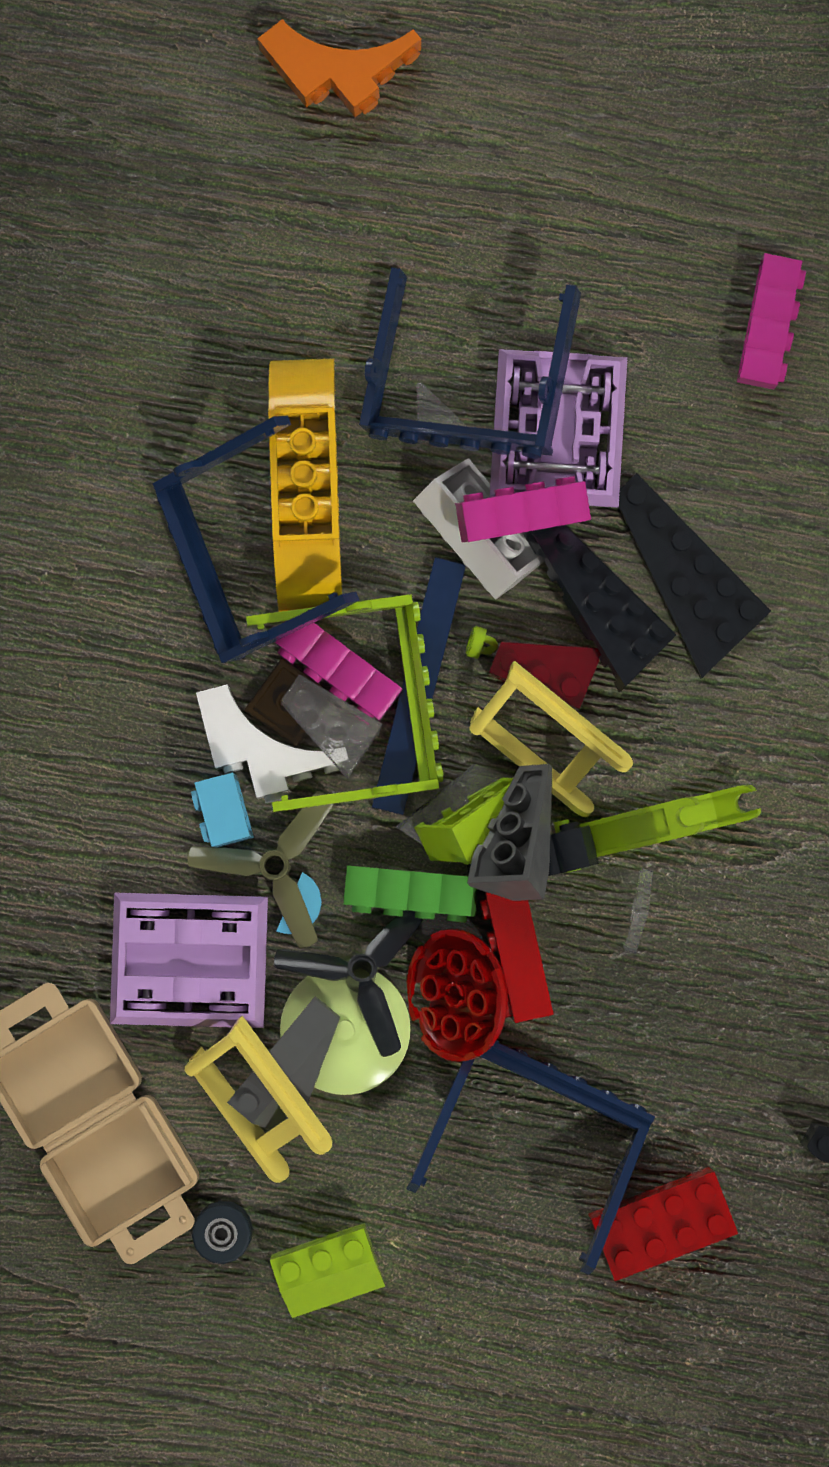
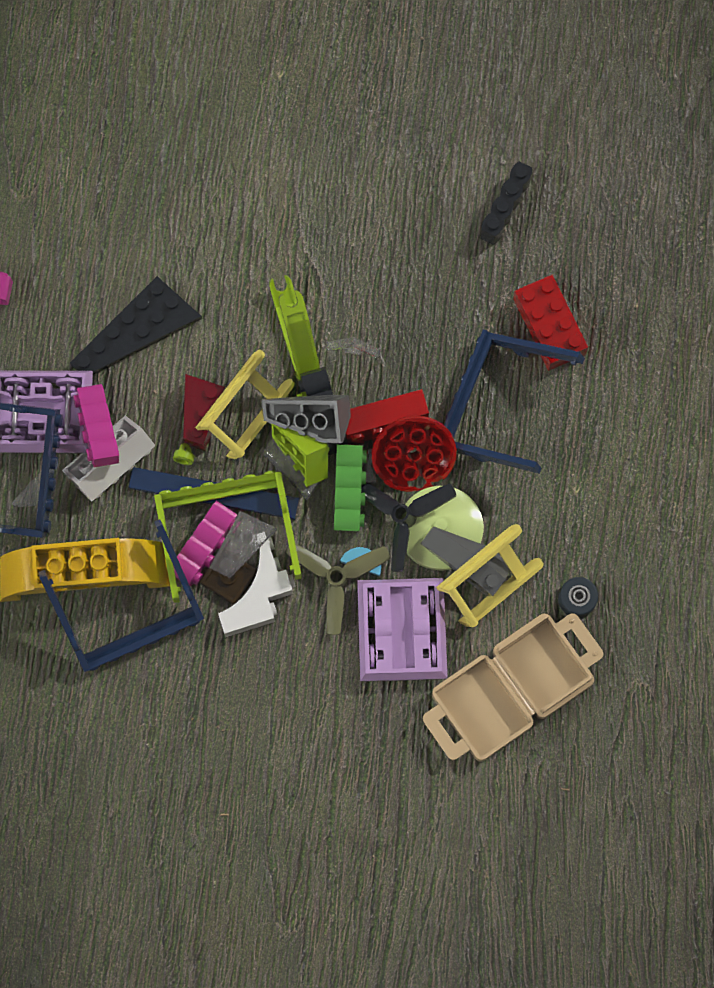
camera: 90 degrees left, 10 degrees down
(222, 810) = (302, 610): medium azure brick -> none
(327, 1270) = (596, 529): lime slope -> none
(601, 604) = (157, 377): black wing -> none

